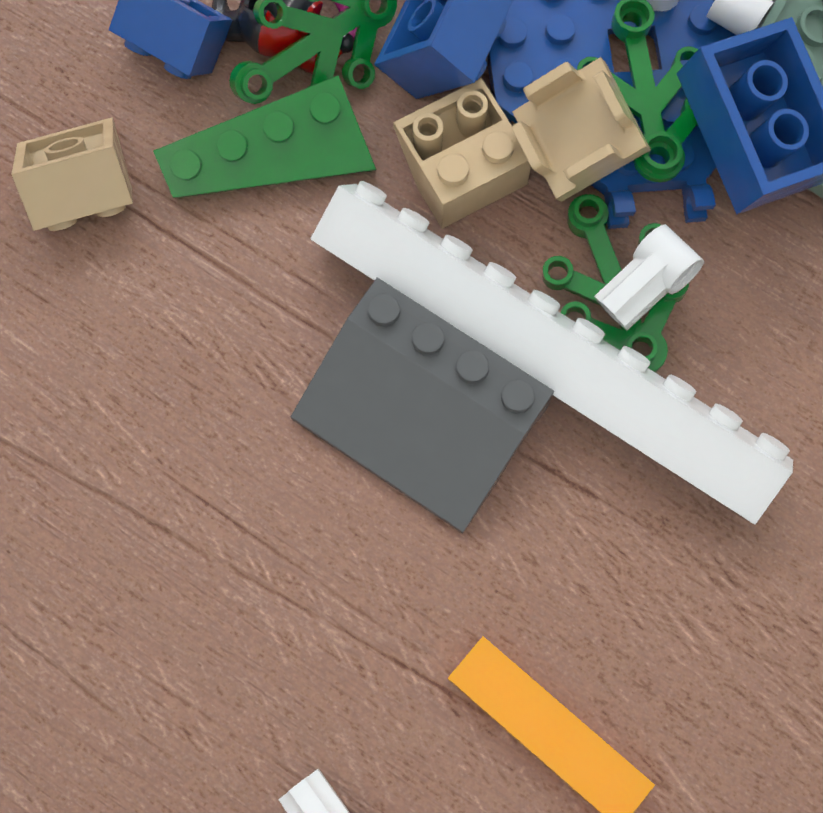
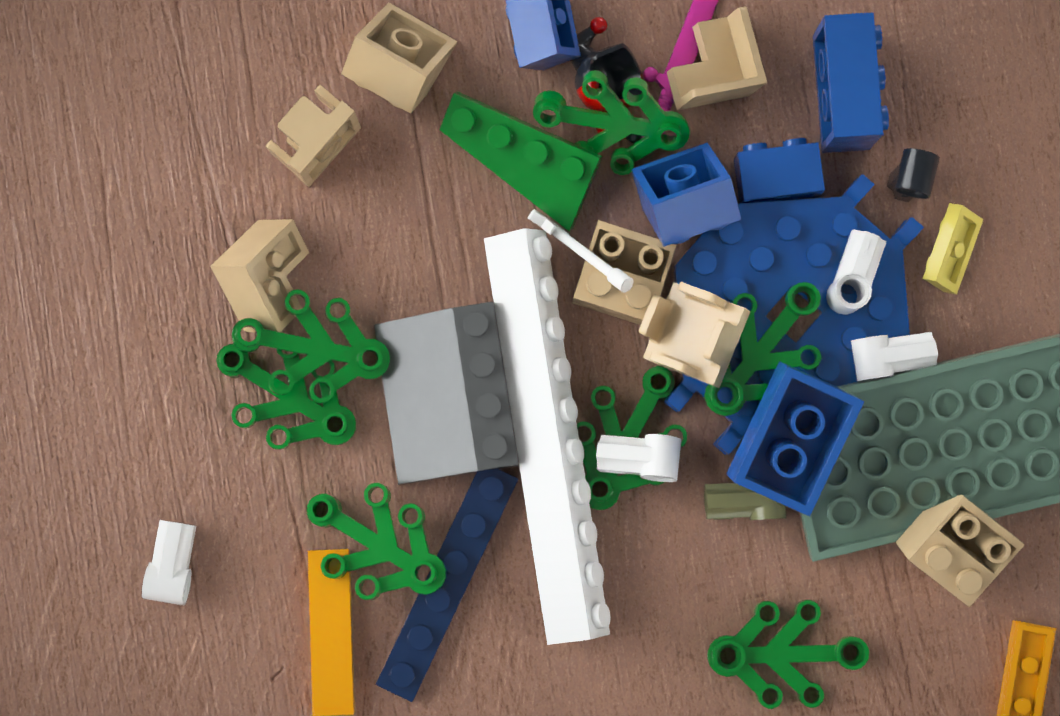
camera: 45 degrees right, 10 degrees up
(66, 289) = (315, 135): none -> tan panel
(138, 479) = (256, 272): none -> tan panel
(261, 482) = (318, 349): none -> green plant
(284, 555) = (290, 403): none -> green plant
(462, 139) = (614, 275): none -> white piece
(512, 598) = (382, 546): none -> green plant
(603, 577) = (461, 555): none -> dark blue plate
(765, 236) = (736, 501): none -> olive piece

